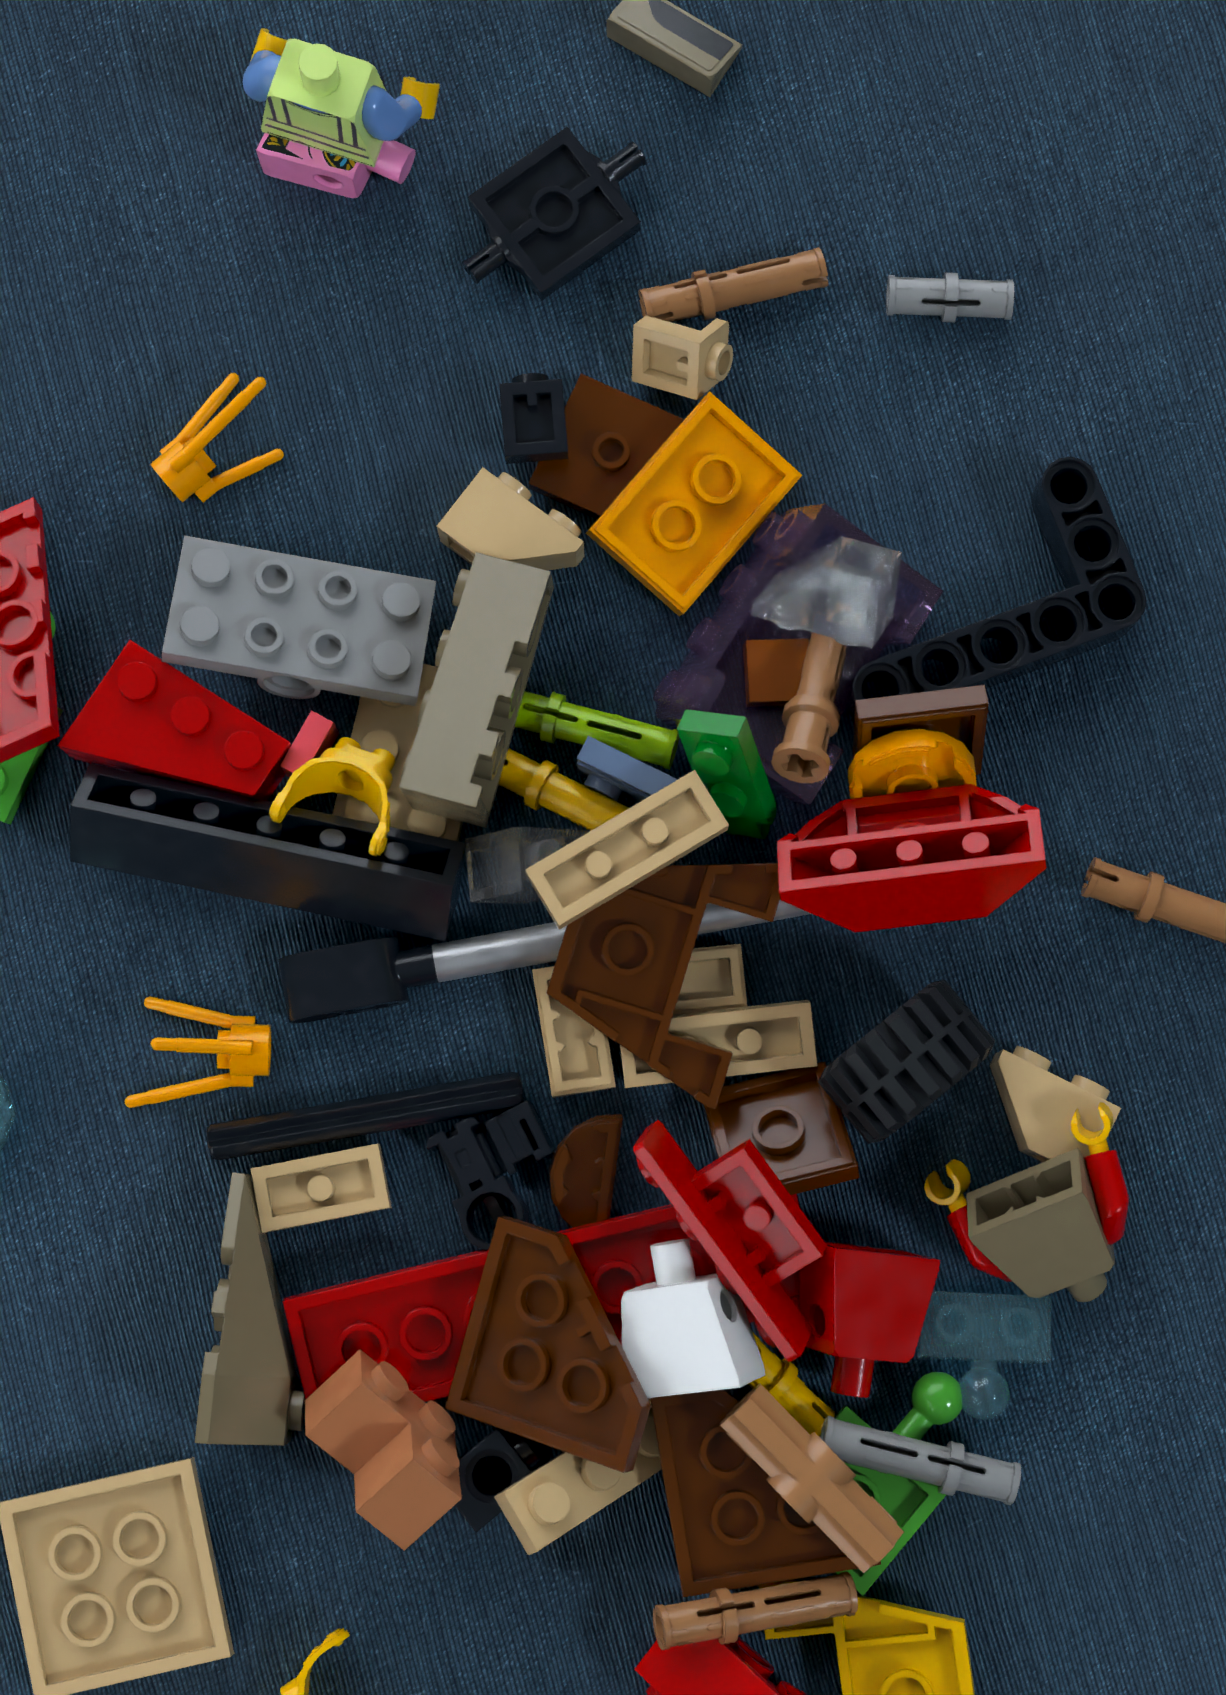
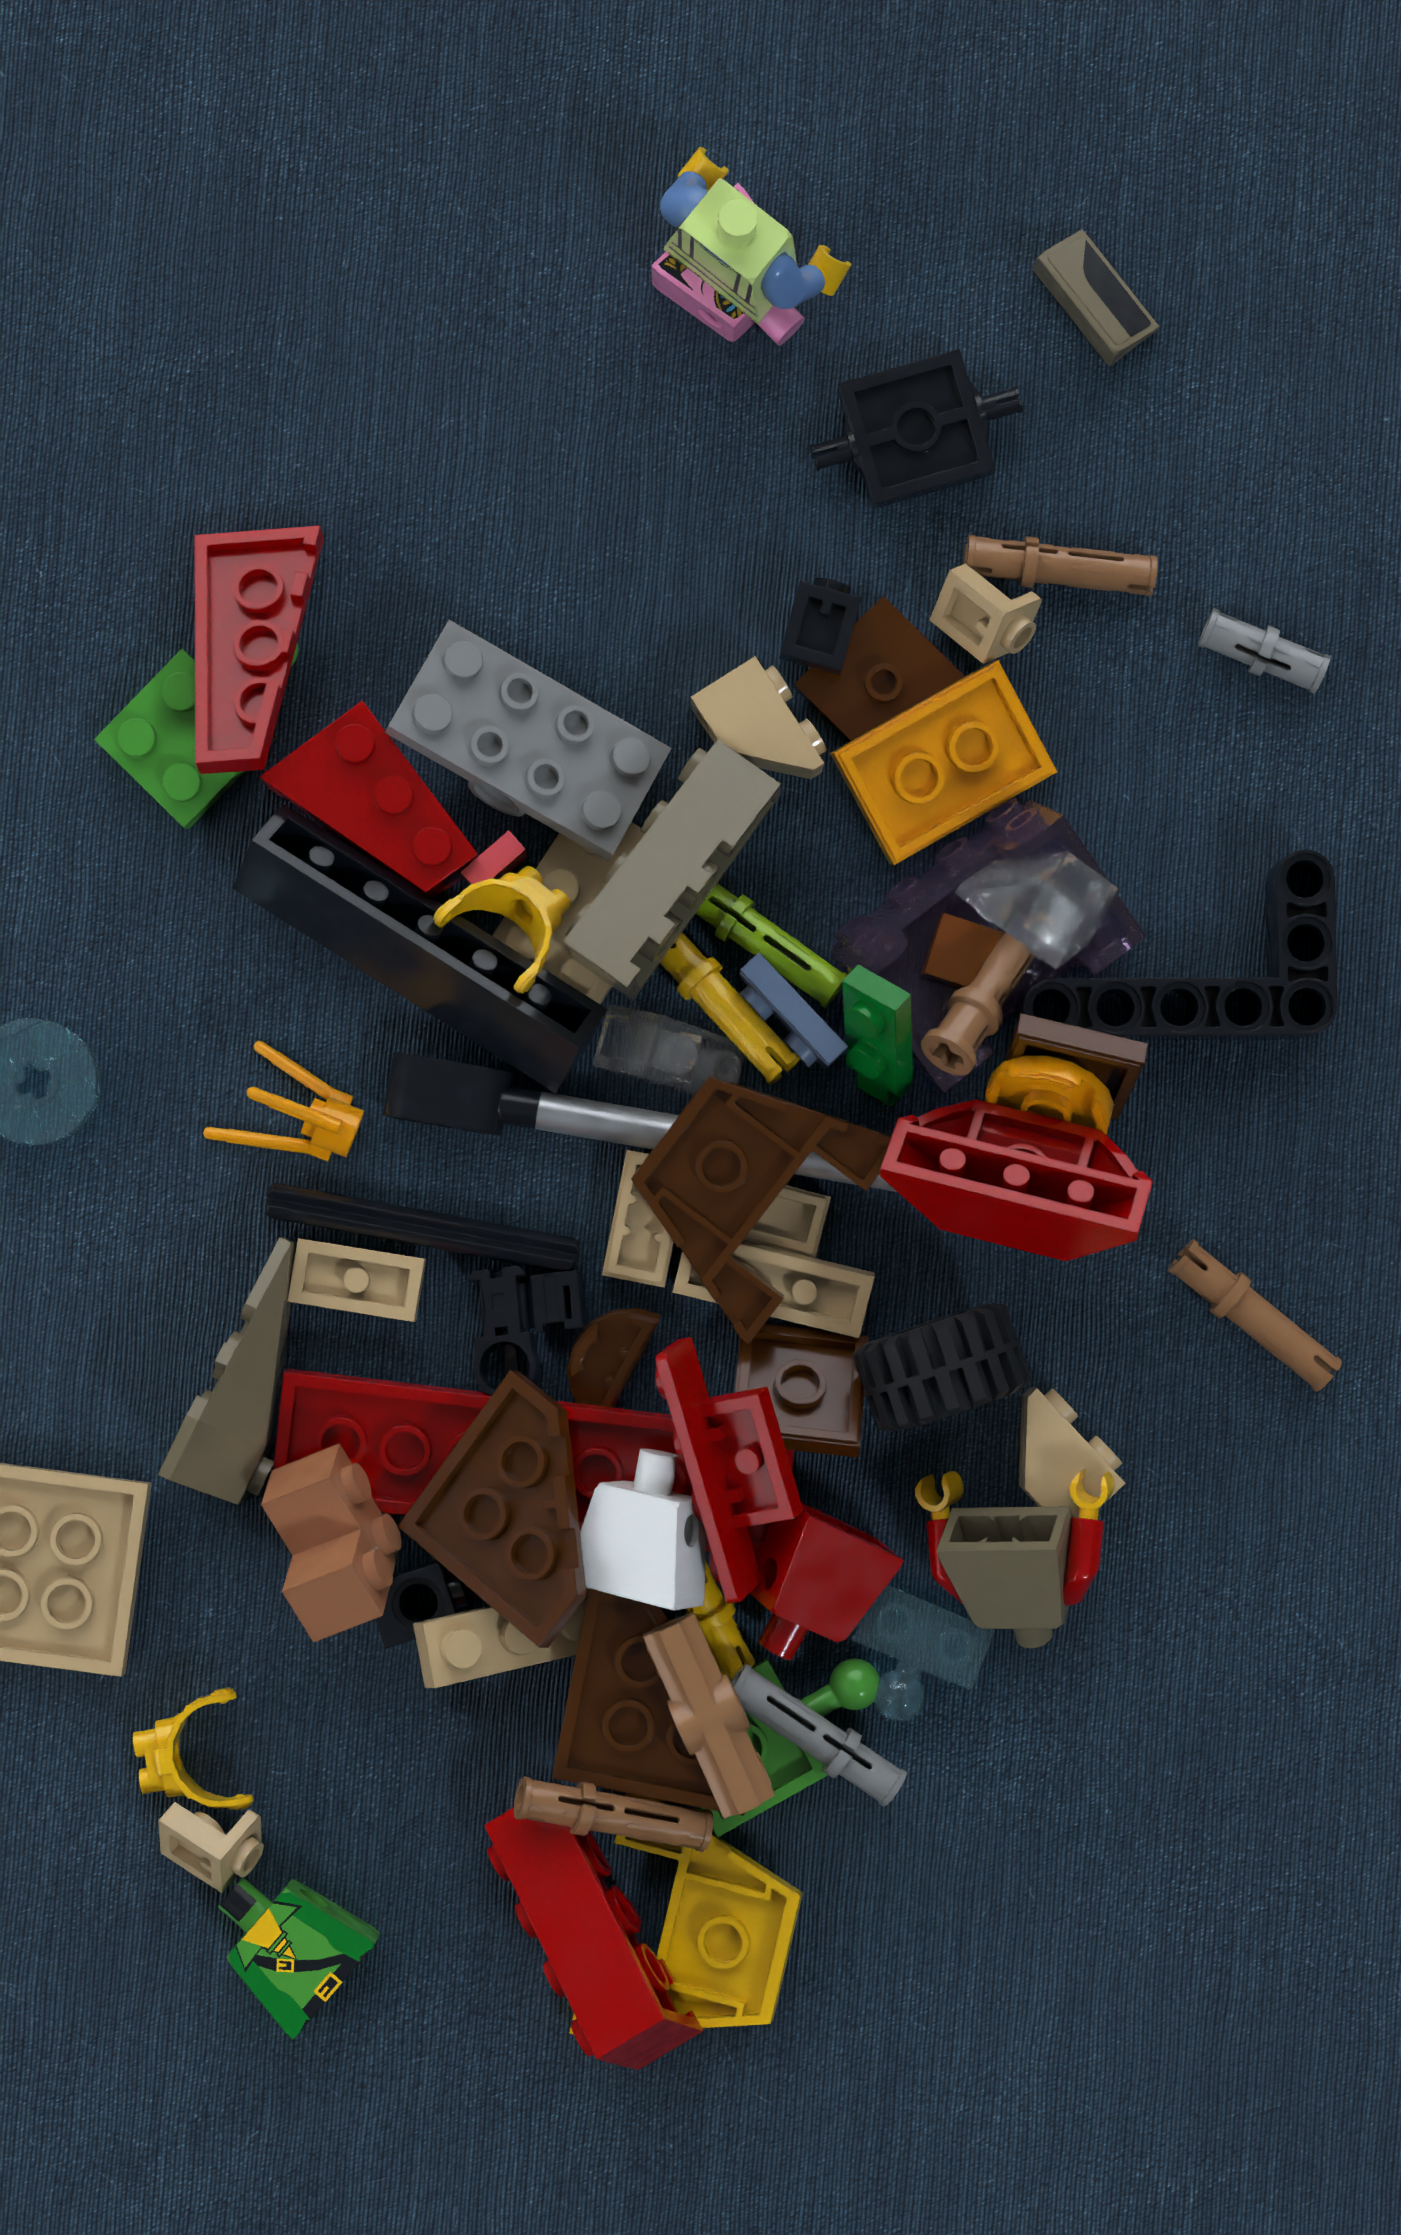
camera: 15 degrees right, 5 degrees up
(184, 462) = (476, 544): light orange plant -> none
(626, 849) = (754, 1075): tan plate -> none

